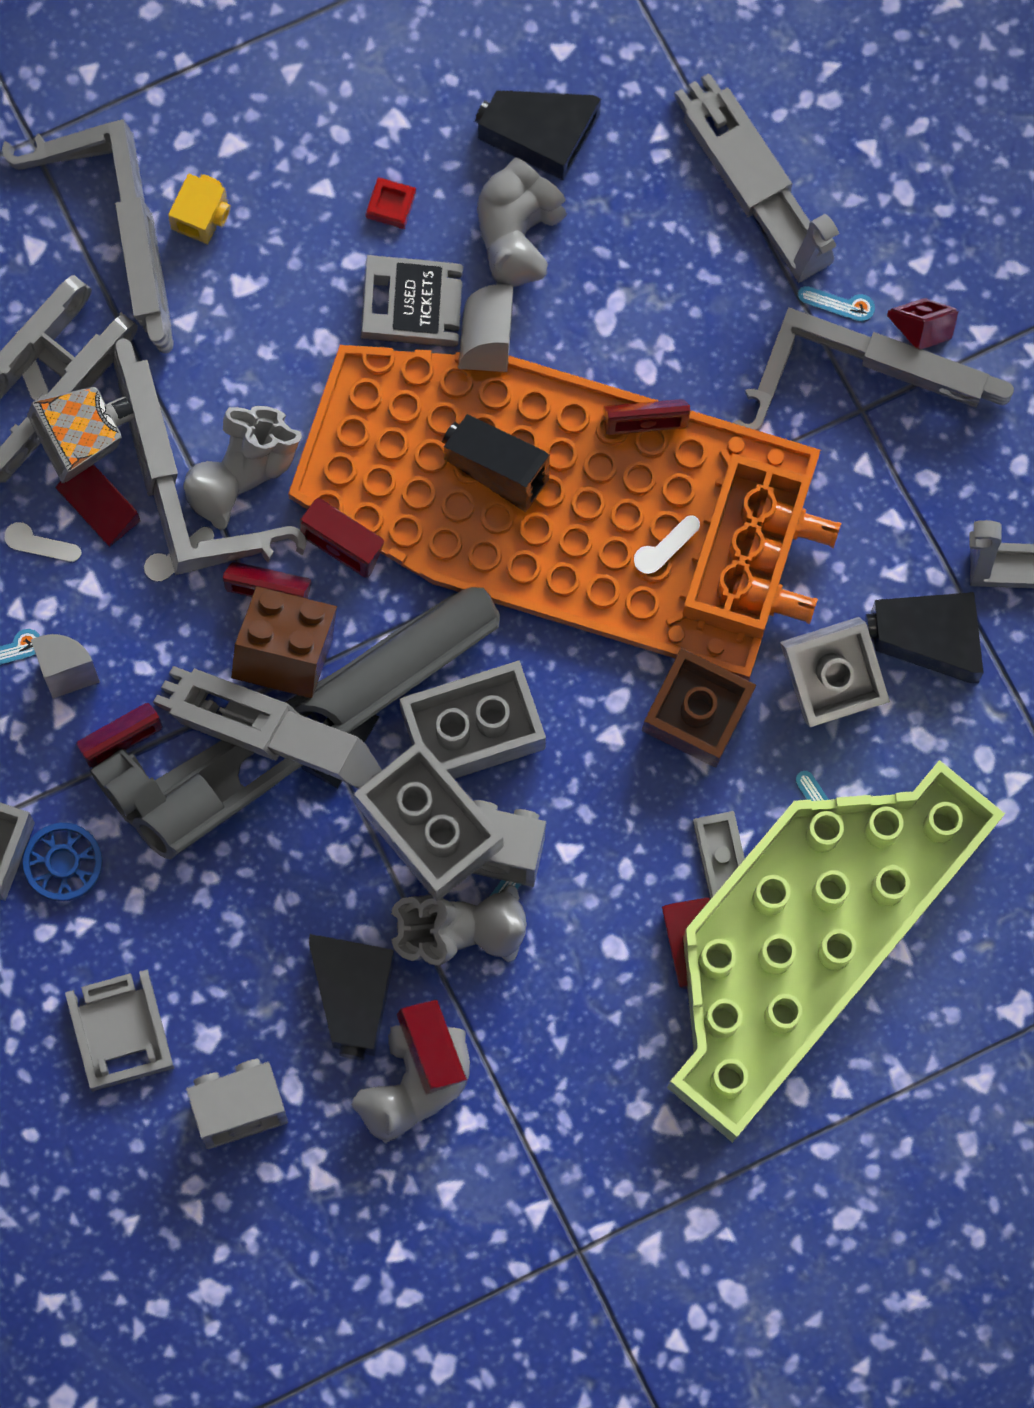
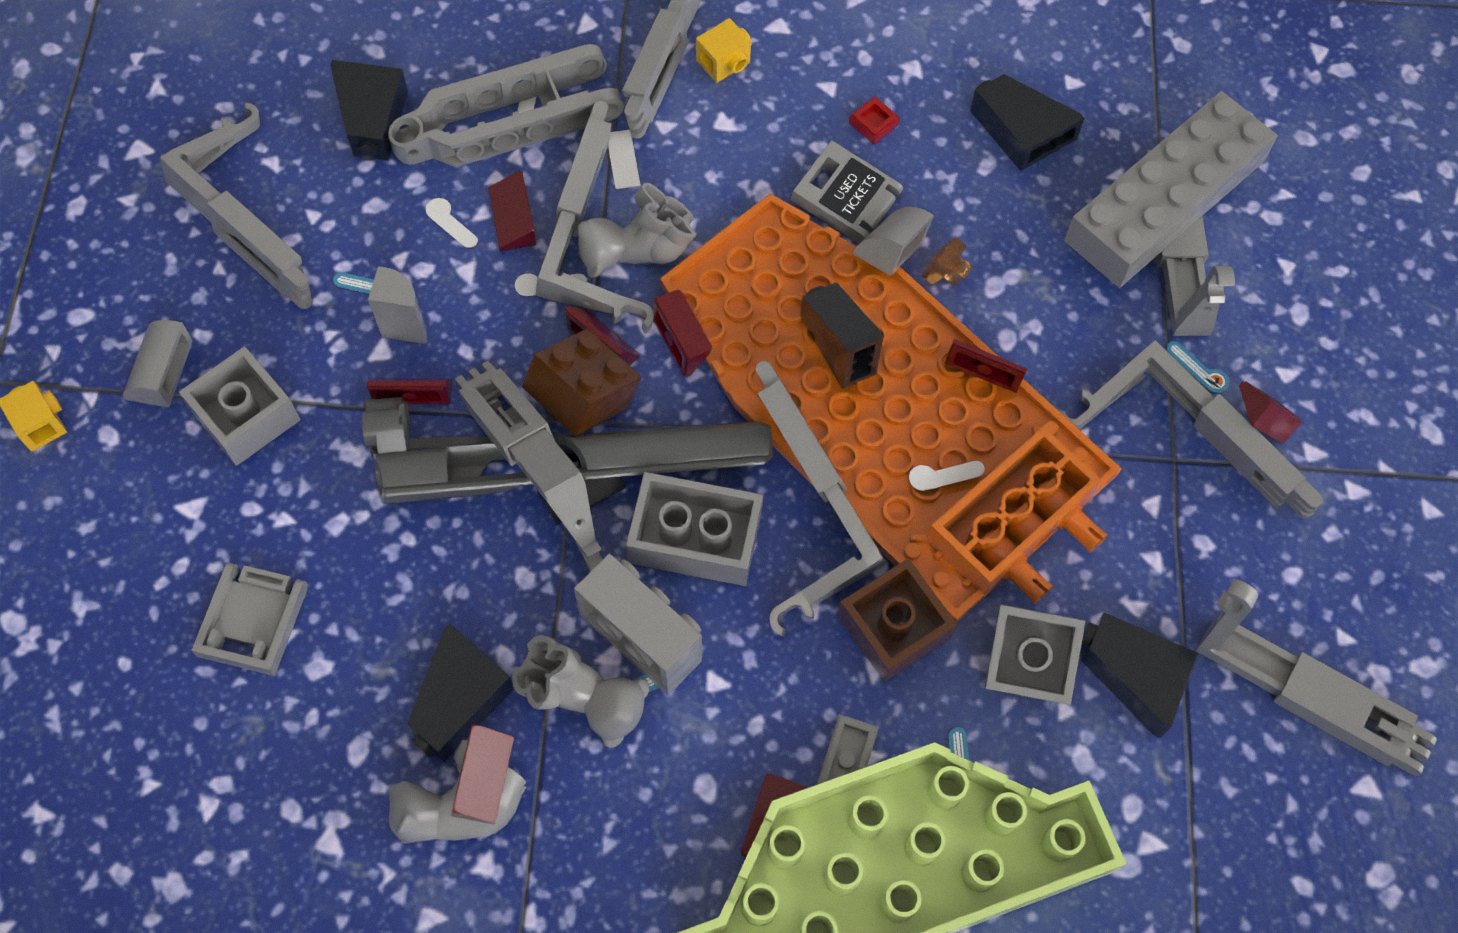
camera: 30 degrees right, 10 degrees down
(62, 861) = (300, 461): blue wheel -> none
(78, 428) = (526, 143): torso -> none
(169, 383) = (623, 159): none -> white sticker
(236, 1103) = (292, 731): light grey brick -> none
(428, 820) = (595, 574): light grey brick -> none
(506, 210) = (966, 162): light grey animal -> none
(549, 325) = (948, 264): none -> clear orange tile
(569, 617) = (829, 487): none -> light grey hinge
(723, 135) = (1170, 188): none -> light grey brick

